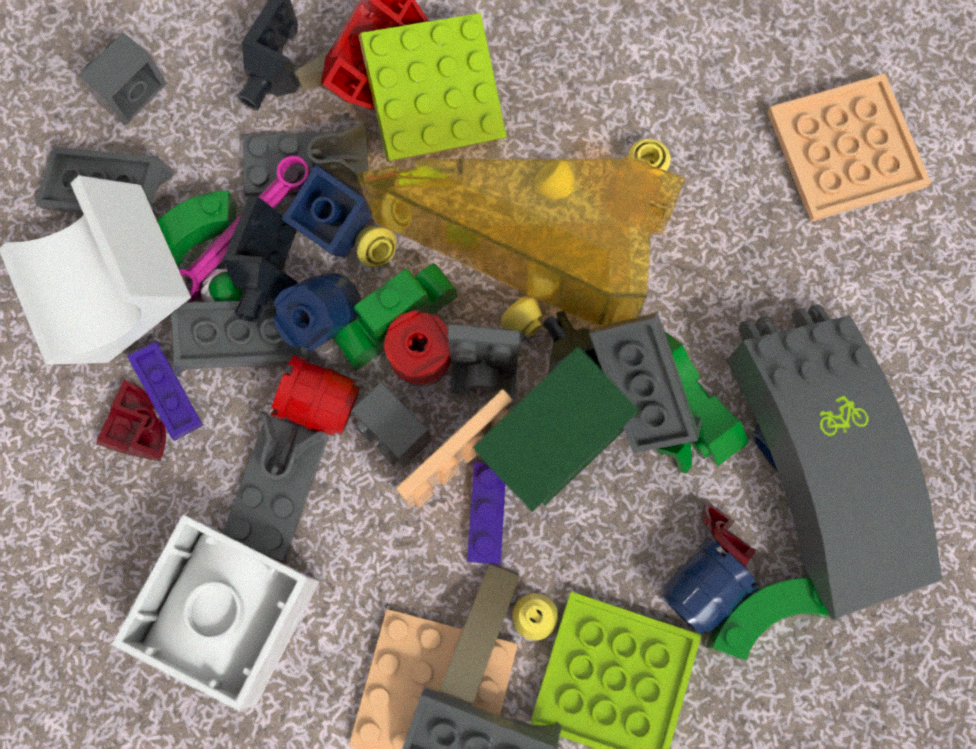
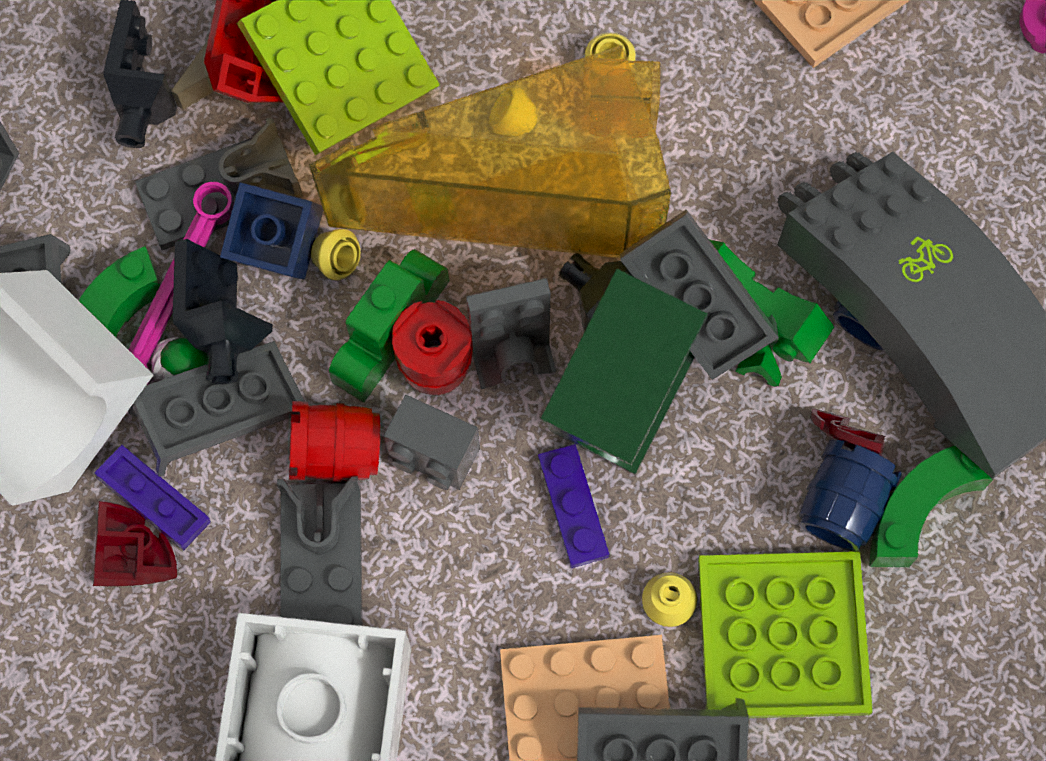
camera: 20 degrees left, 5 degrees down
(315, 310) = (299, 343): dark blue piece -> none
(444, 462) = (517, 442): light nougat plate -> none
(479, 634) = (616, 635): dark tan slope -> none
(523, 317) = (535, 267): light yellow cone -> none

